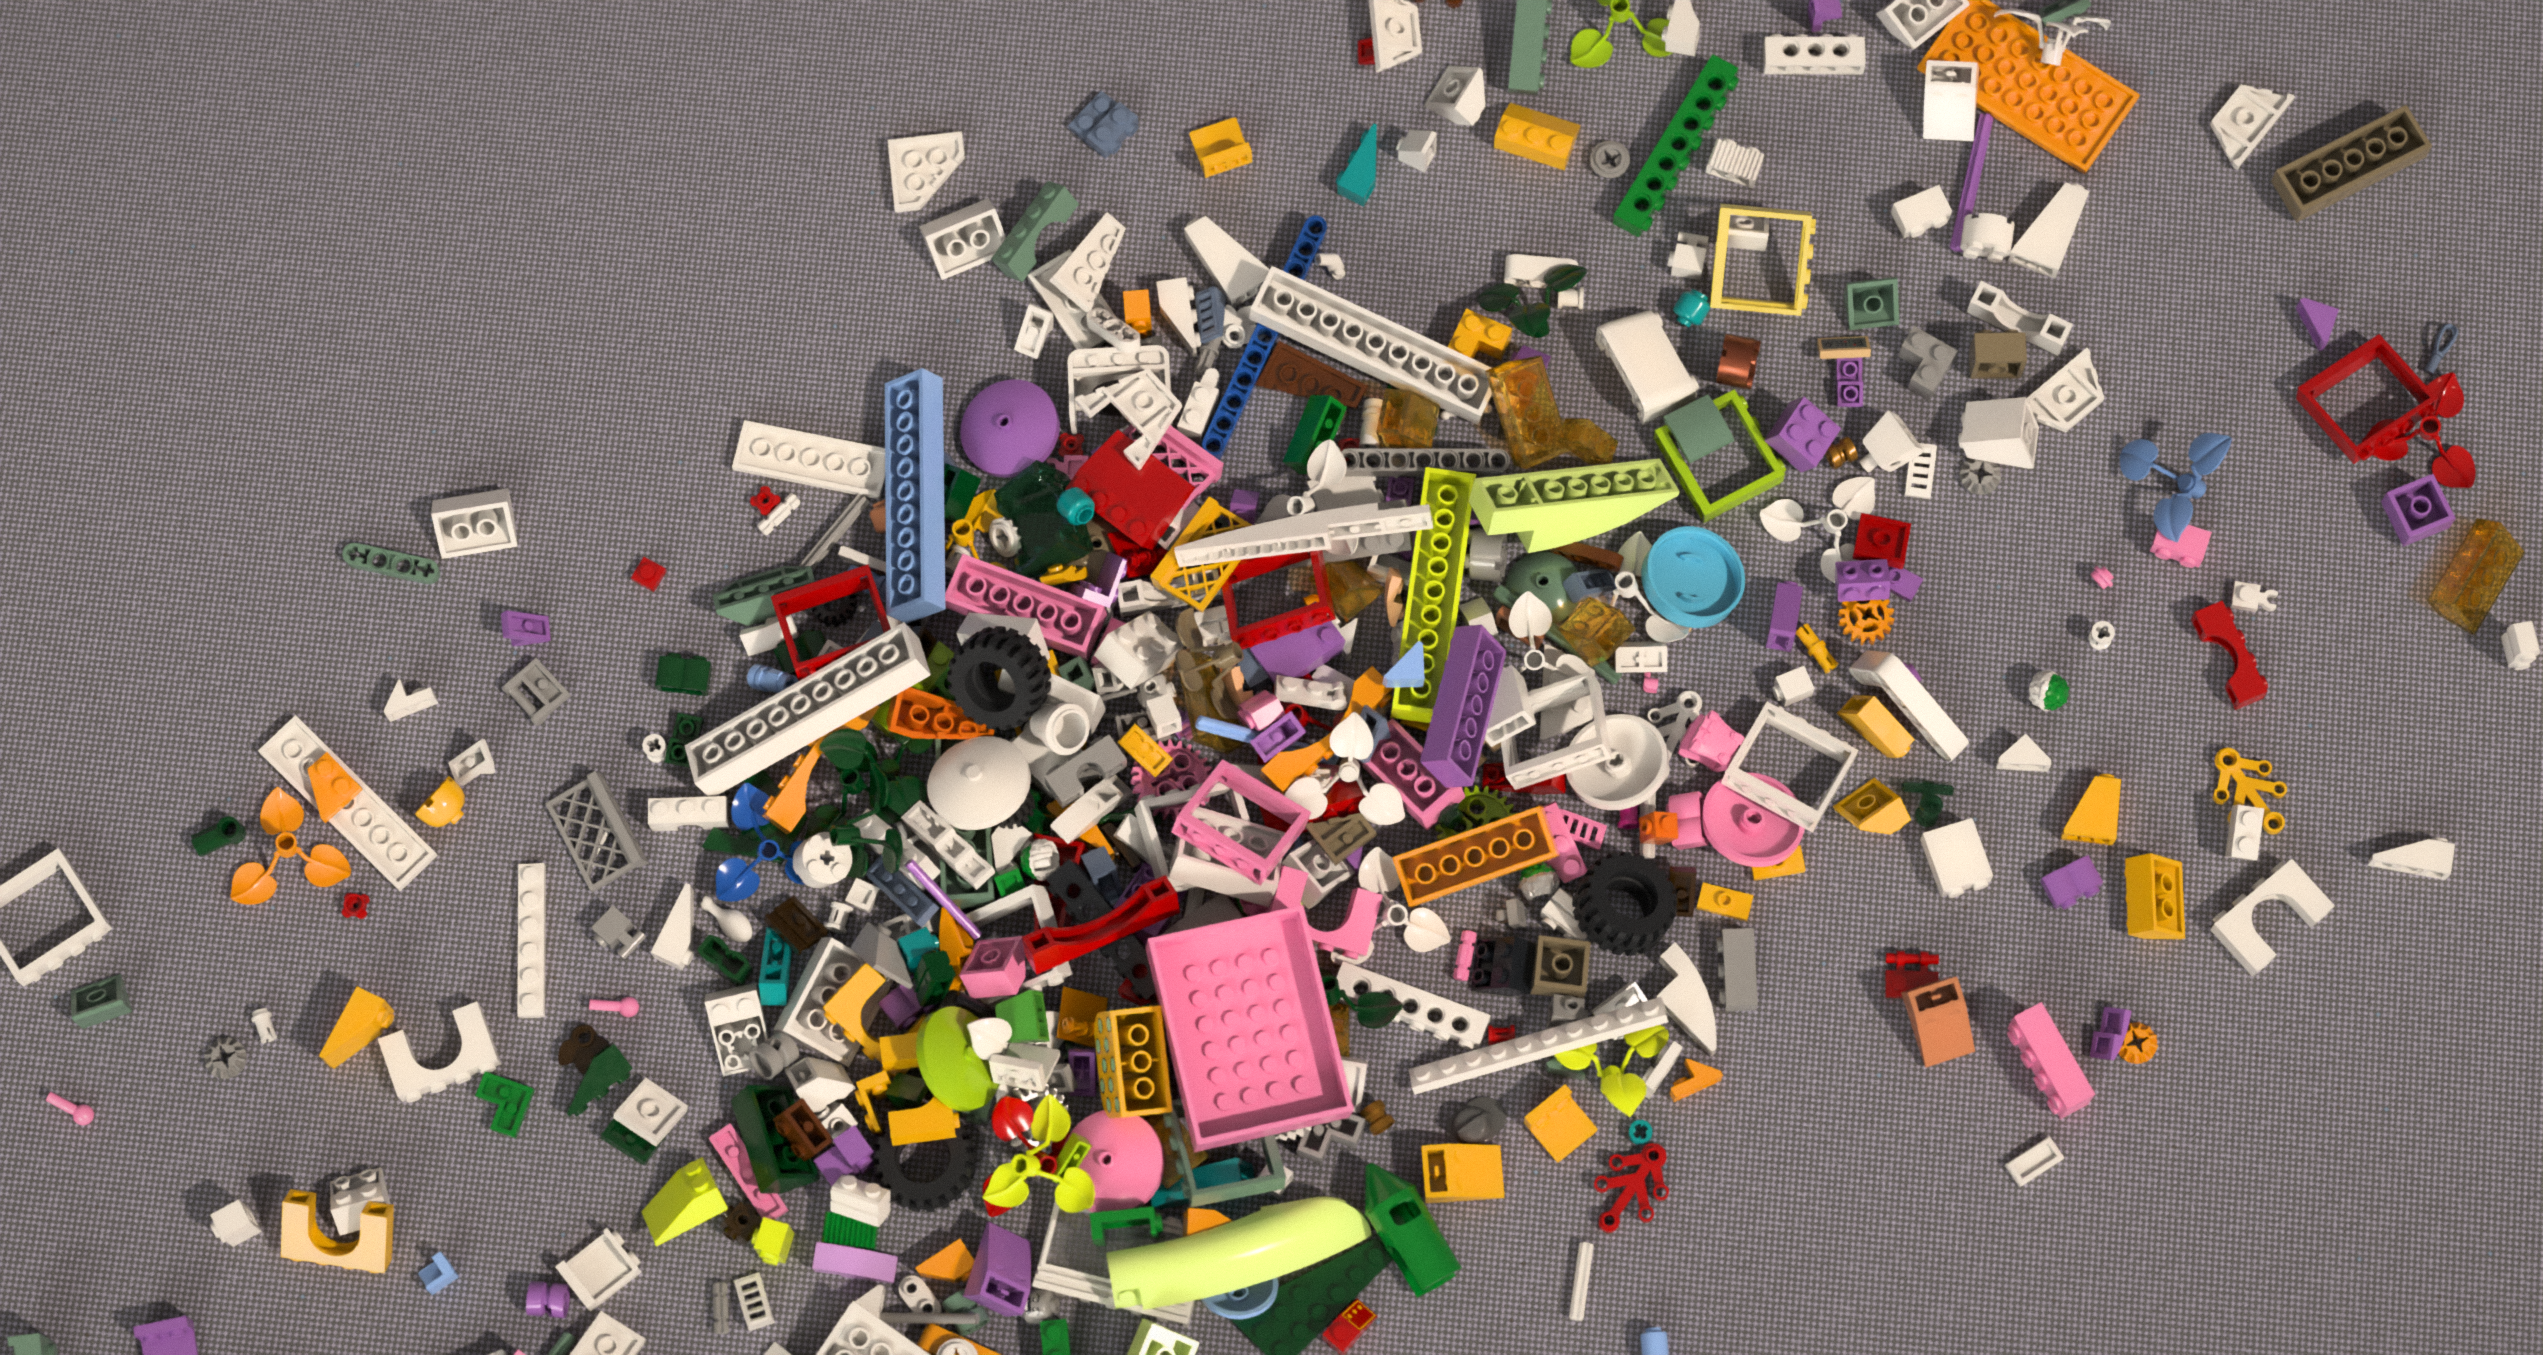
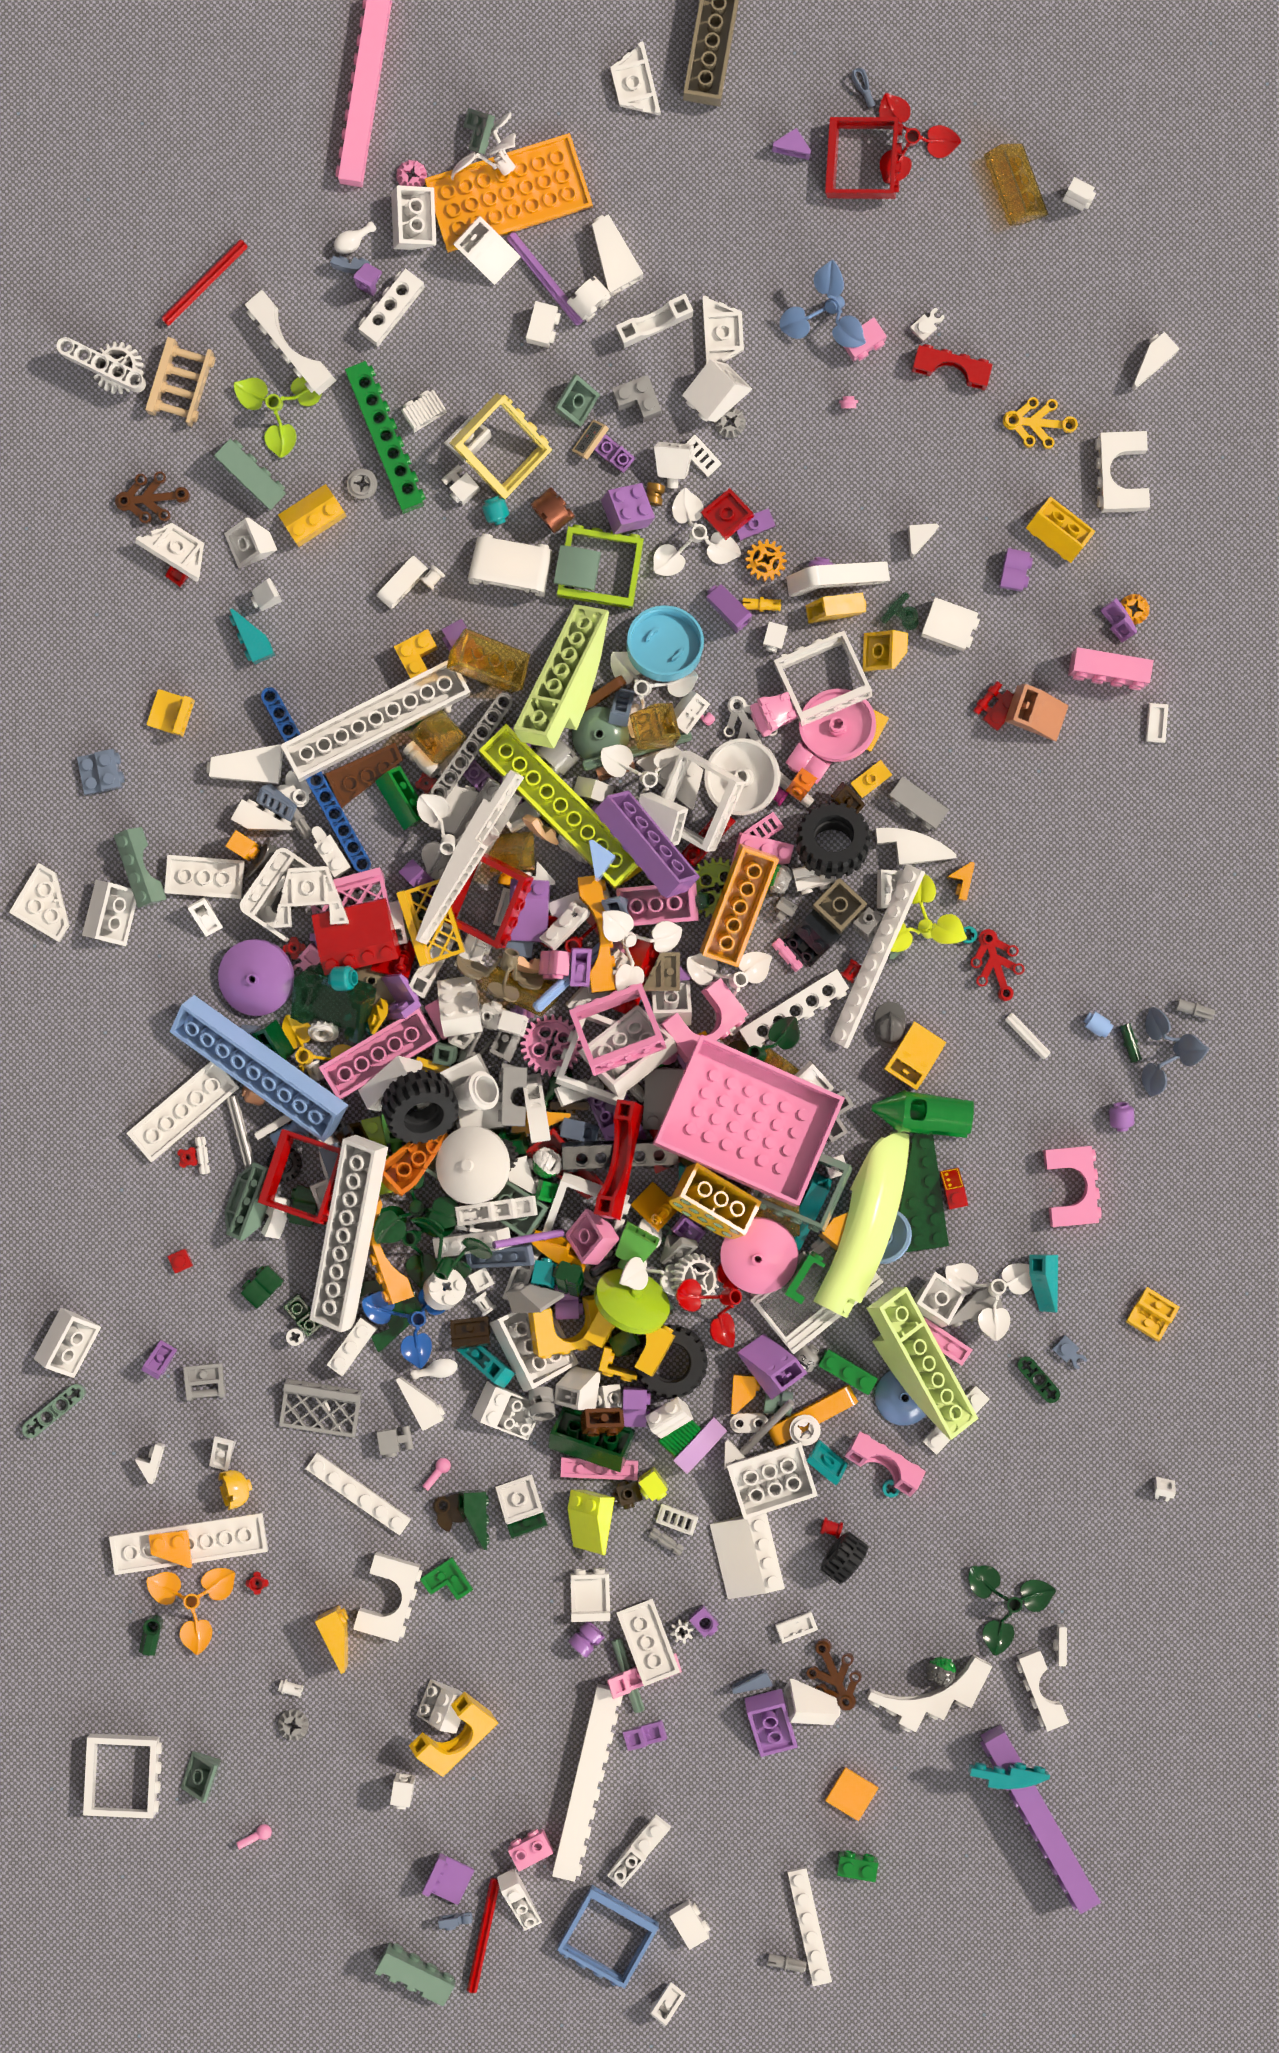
camera: 60 degrees left, 15 degrees up
(438, 1273) = (521, 1691): light blue panel -> none
(720, 958) = (454, 1391): dark green brick -> none
(769, 679) = (307, 1237): light blue axle -> none
(1007, 1183) = (726, 1323): neon yellow plant -> none
(1024, 1066) = (664, 1264): white bracket -> none
(1072, 1154) = (740, 1279): lime piece -> none
(1085, 268) = (186, 850): white wing -> none
(1102, 321) = (251, 872): white beam -> none
(1145, 750) = (525, 1050): yellow plate -> none
(1332, 262) = (299, 702): white arm -> none
(1376, 1116) = (843, 1079): pearl gold wheel -> none
(1532, 317) = (434, 611): dark green plant -> none
(1560, 1124) = (930, 977): yellow bracket -> none
(1587, 441) = (533, 639): clear yellow brick -> none
(1664, 1062) = (946, 902): white plate -> none
(1862, 580) = (745, 546): medium lavender brick -> none
(1997, 355) = (668, 352): dark tan brick -> none
(2048, 690) = (893, 490): piece -> none
(2096, 630) = (886, 427): white bush -> none
(2096, 813) = (984, 521): yellow slope -> none
(2244, 832) = (1064, 446): white brick -> none
(2418, 510) = (952, 184): medium lavender brick -> none

